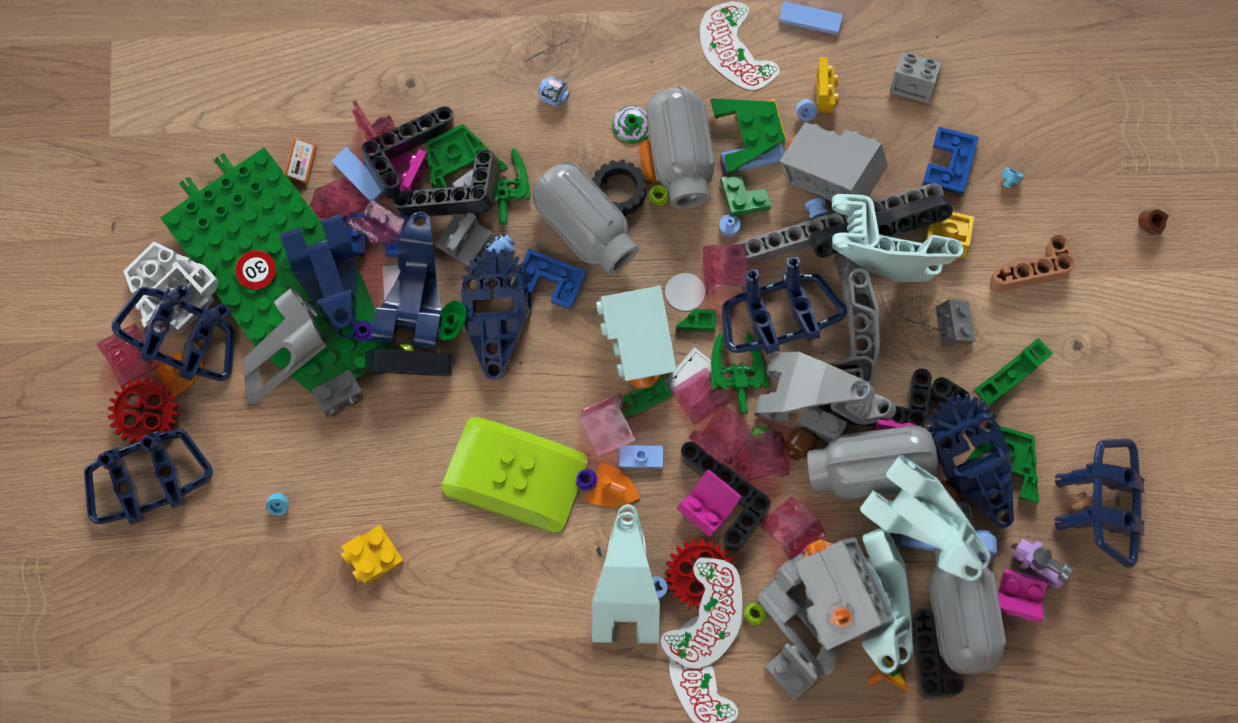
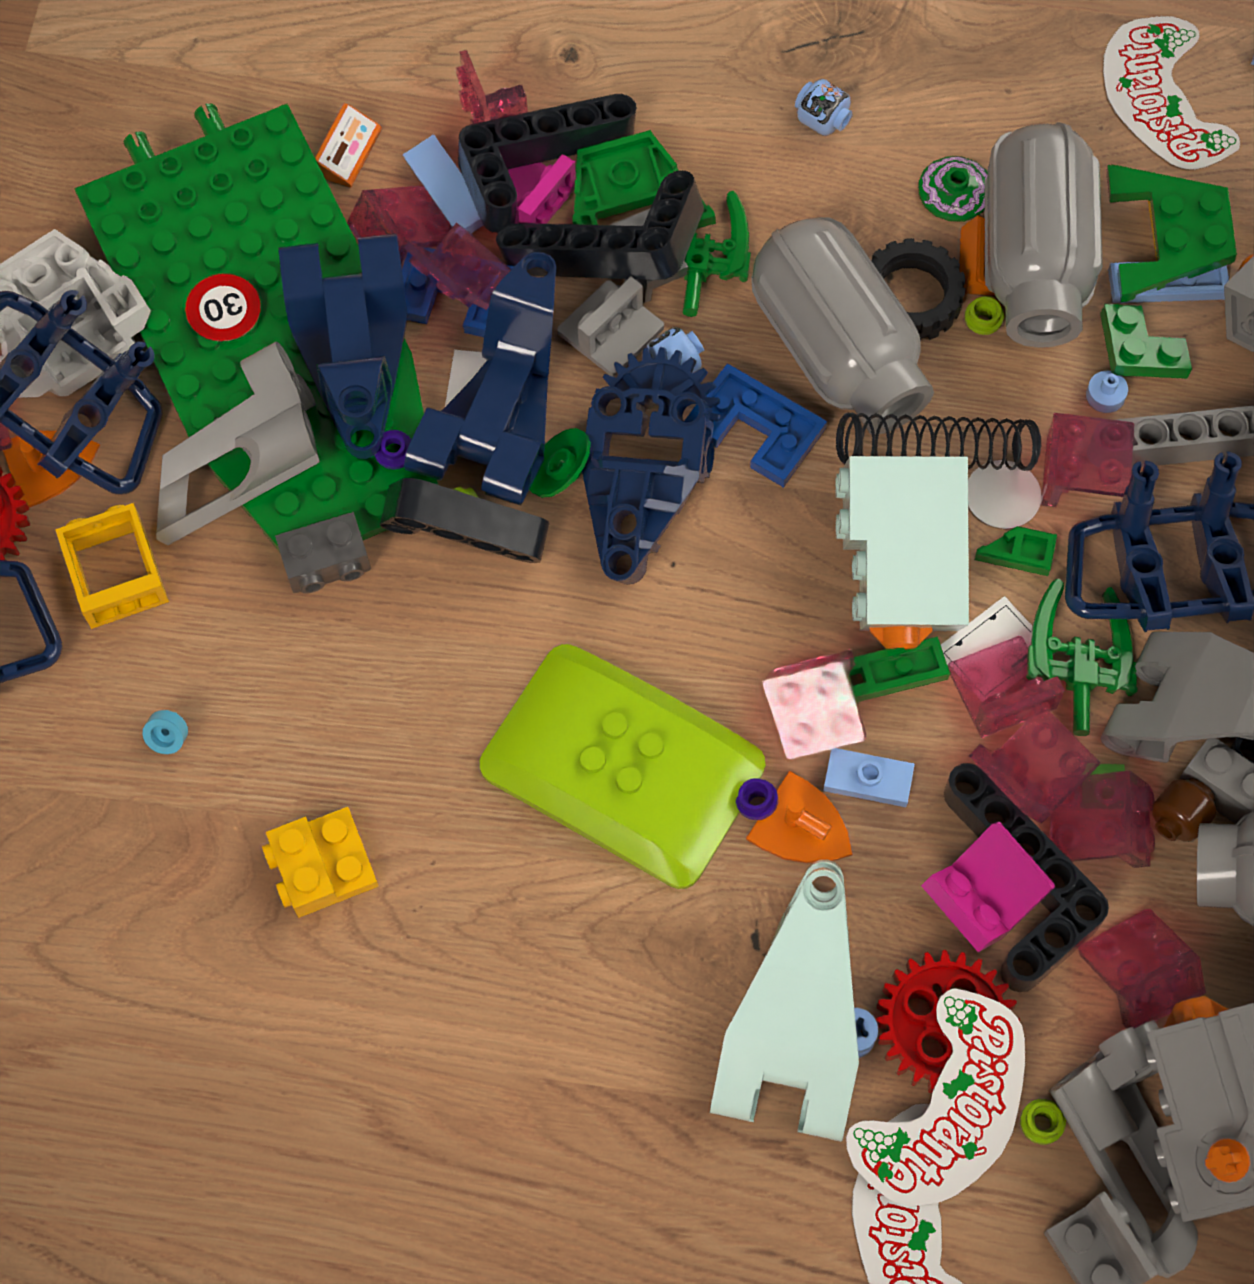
camera: 10 degrees right, 5 degrees down
(240, 437) = (121, 599): none -> yellow window
(604, 280) = (1016, 442): none -> black piece

